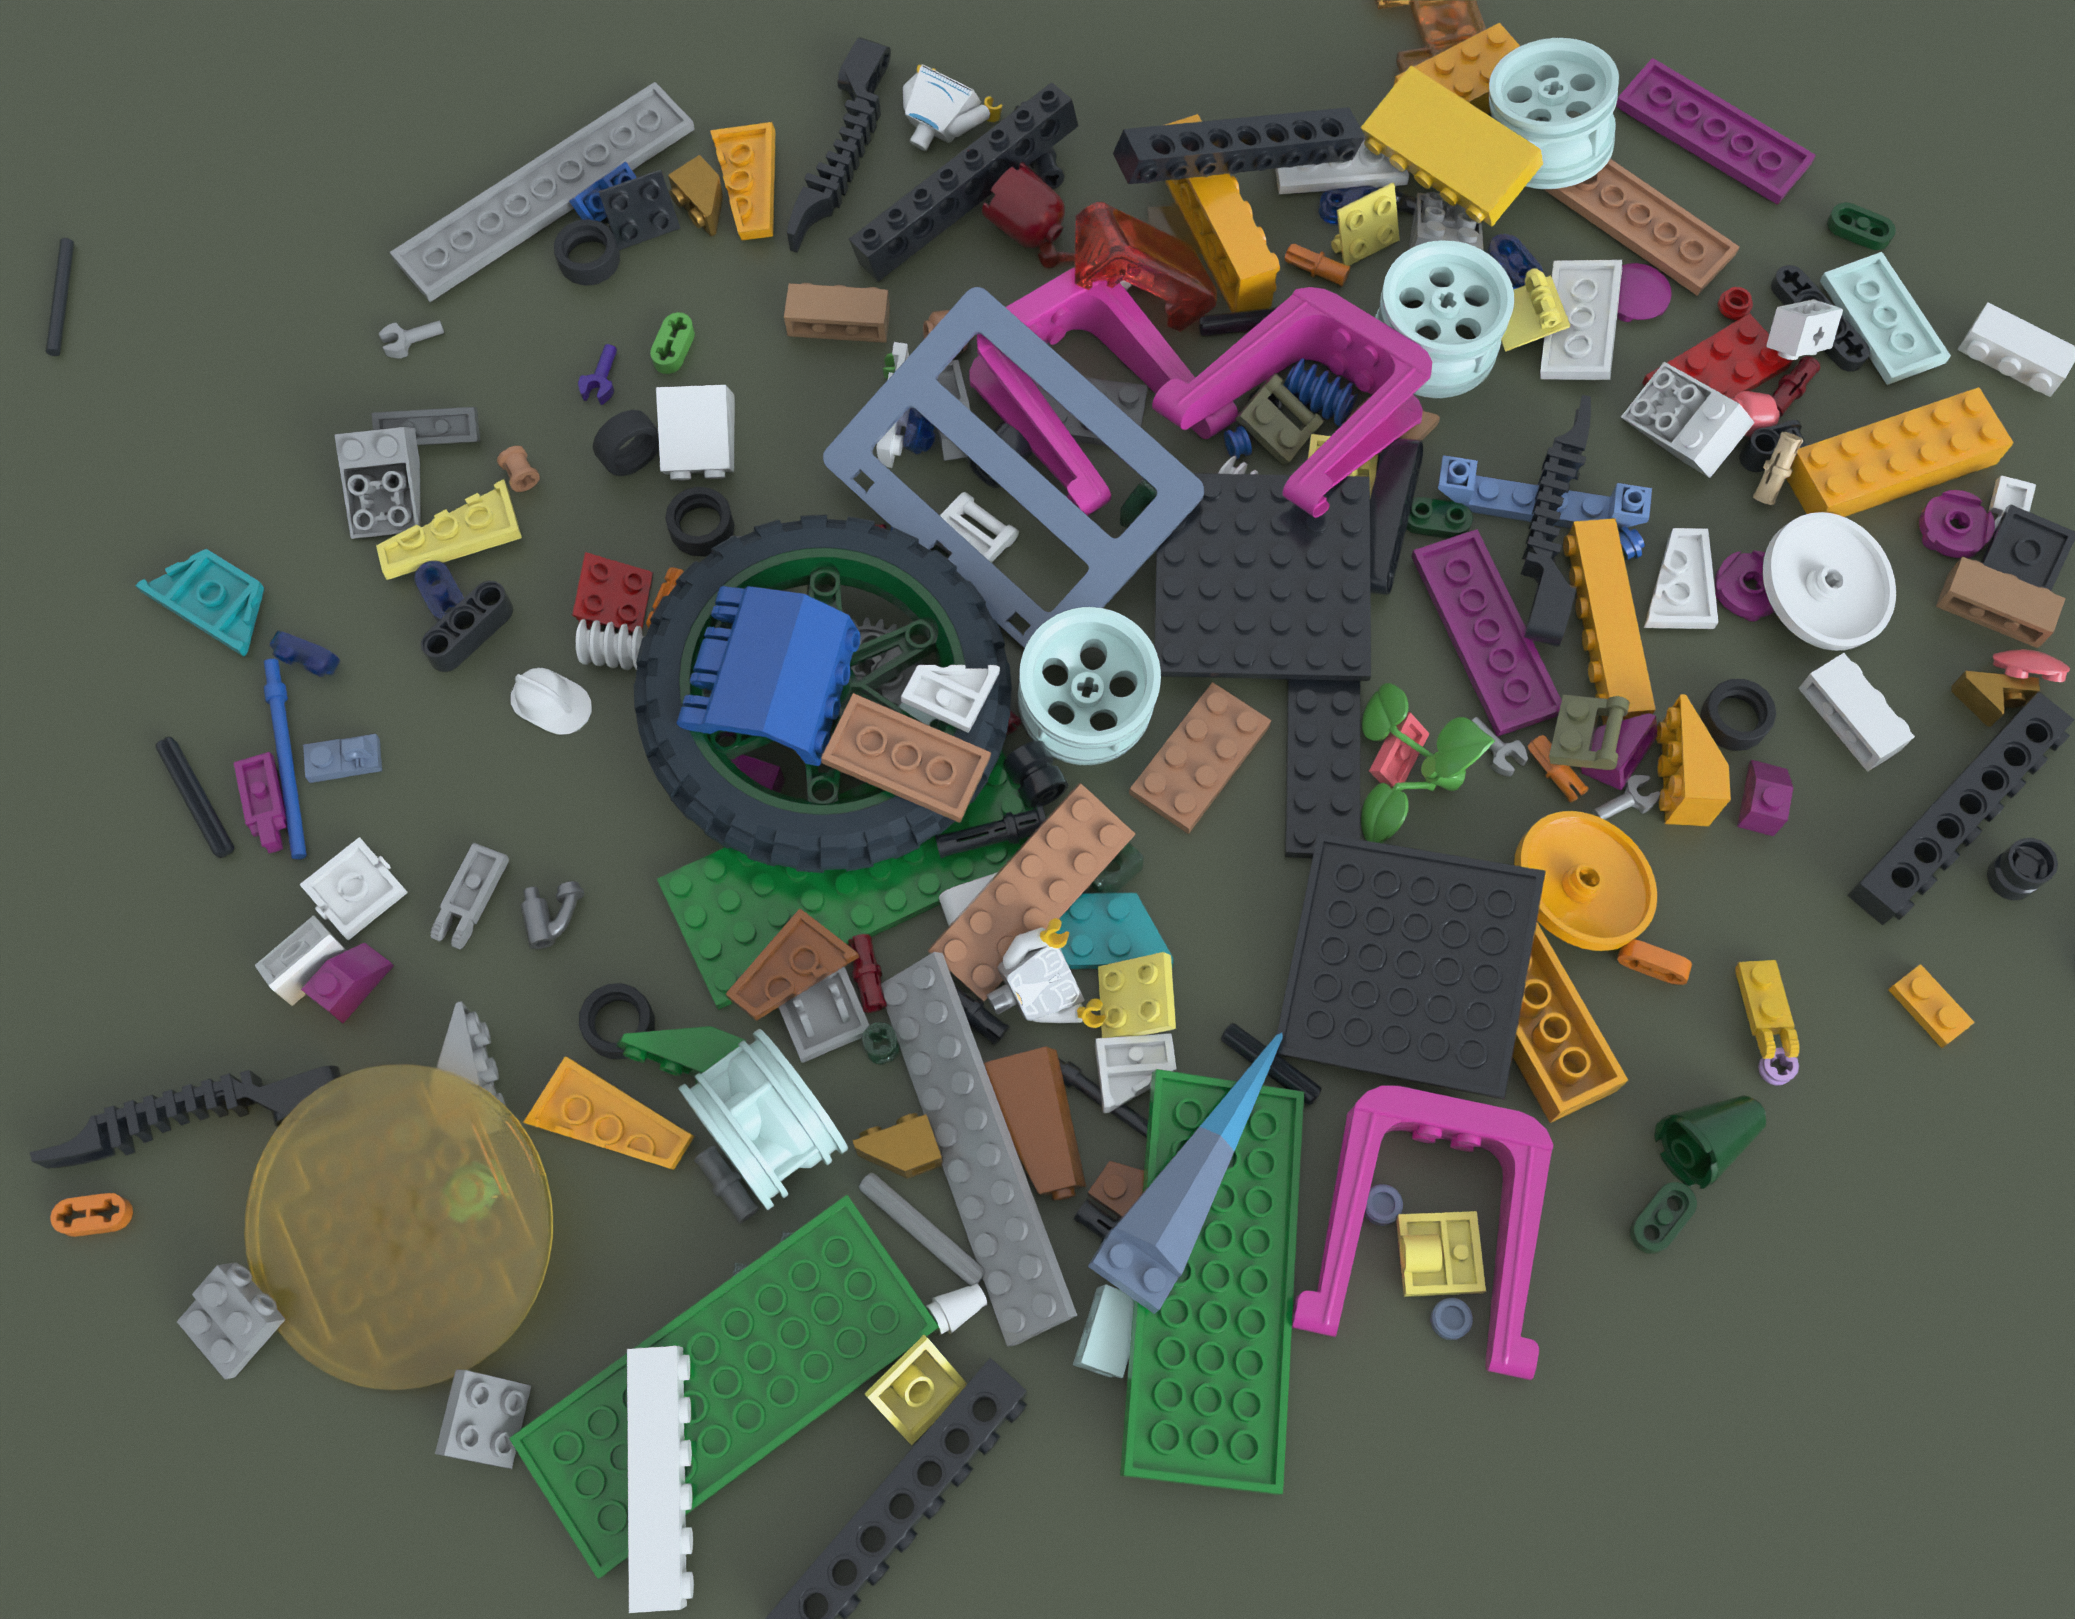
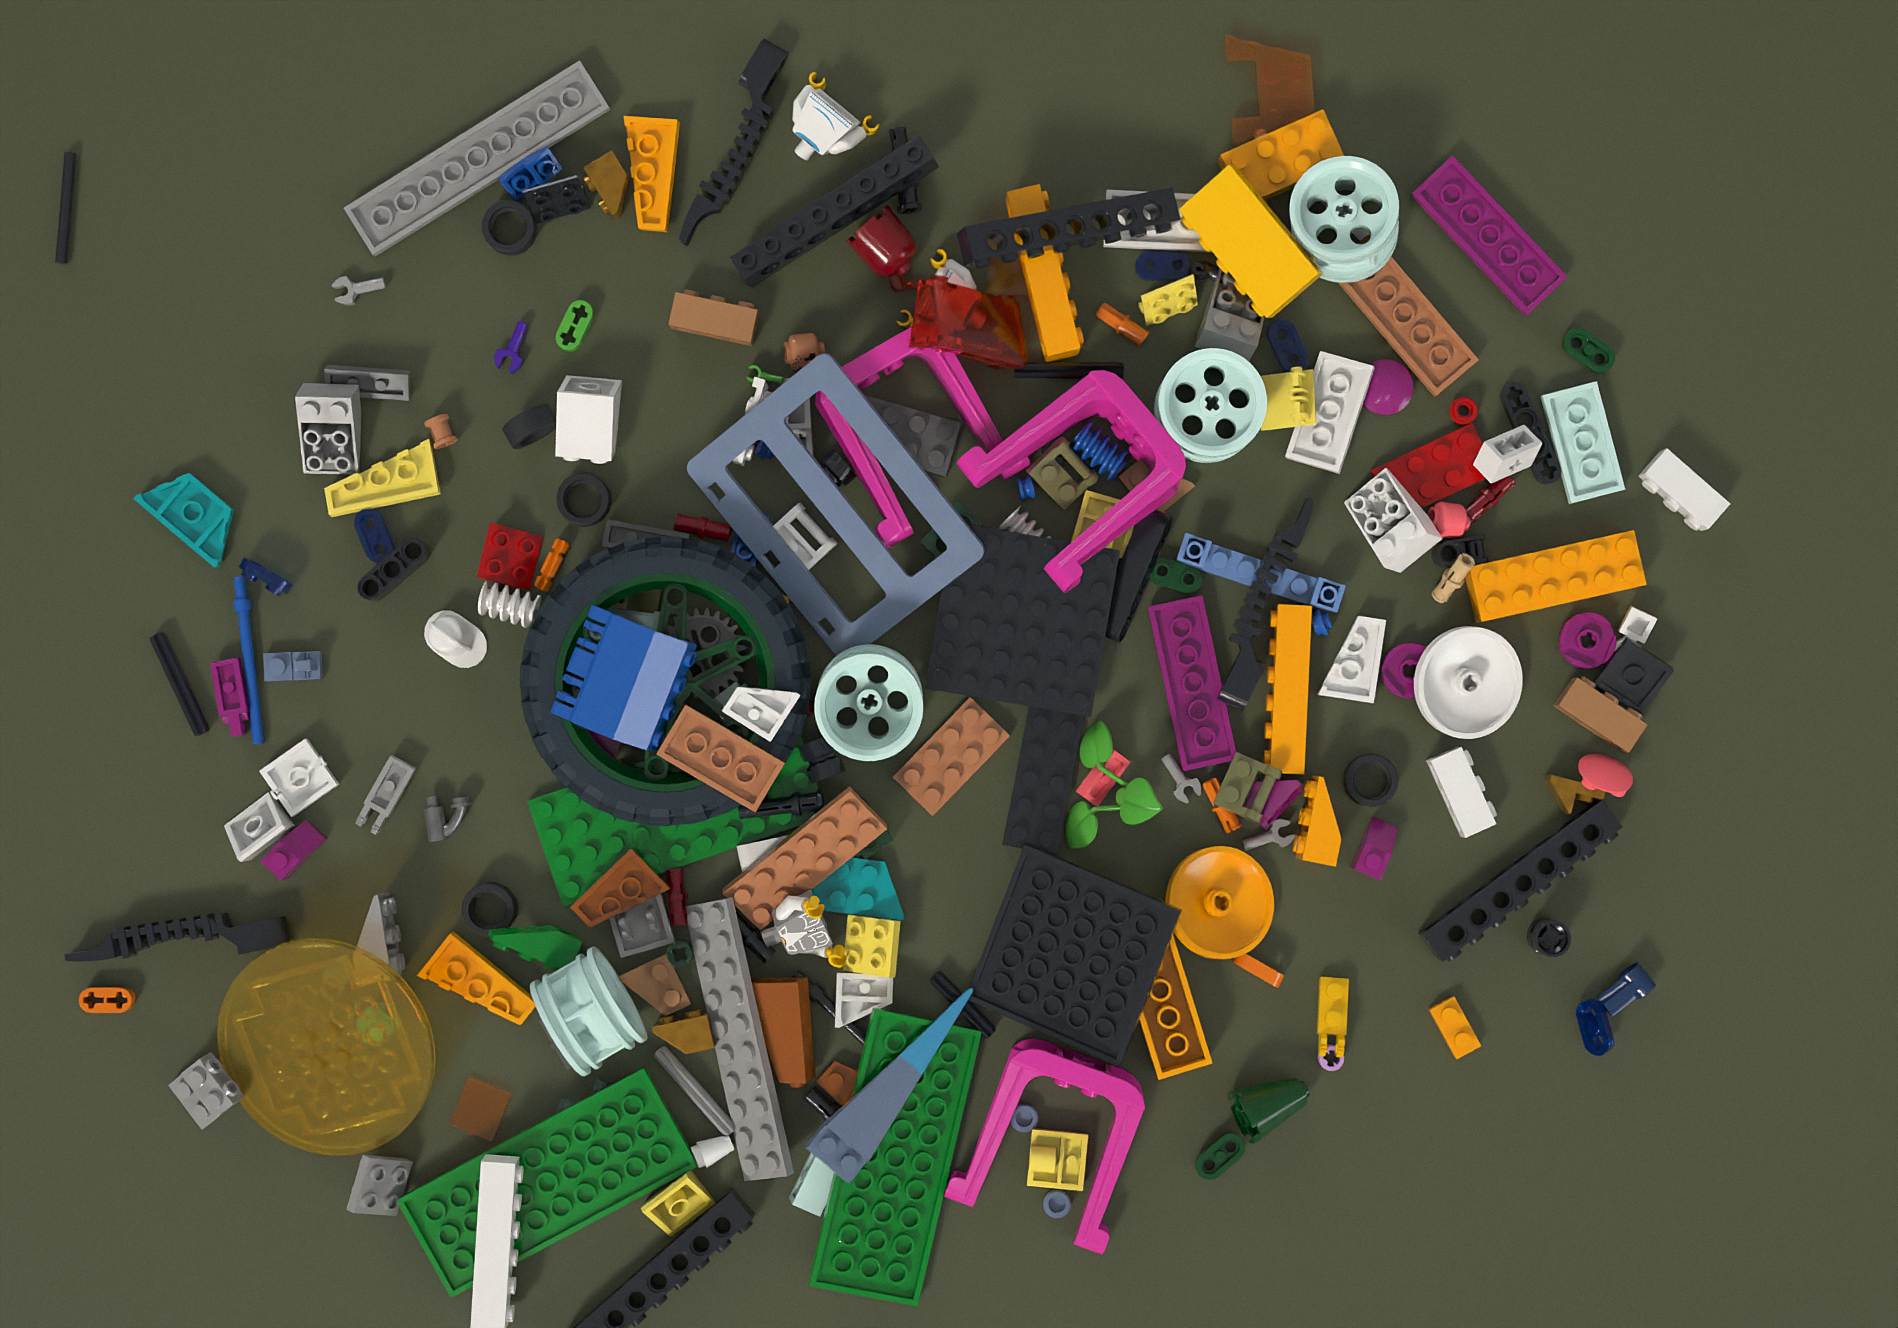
camera: 10 degrees right, 20 degrees up
(622, 1299) = (480, 1109): none -> clear orange piece
(856, 1092) = (658, 985): none -> medium nougat wing

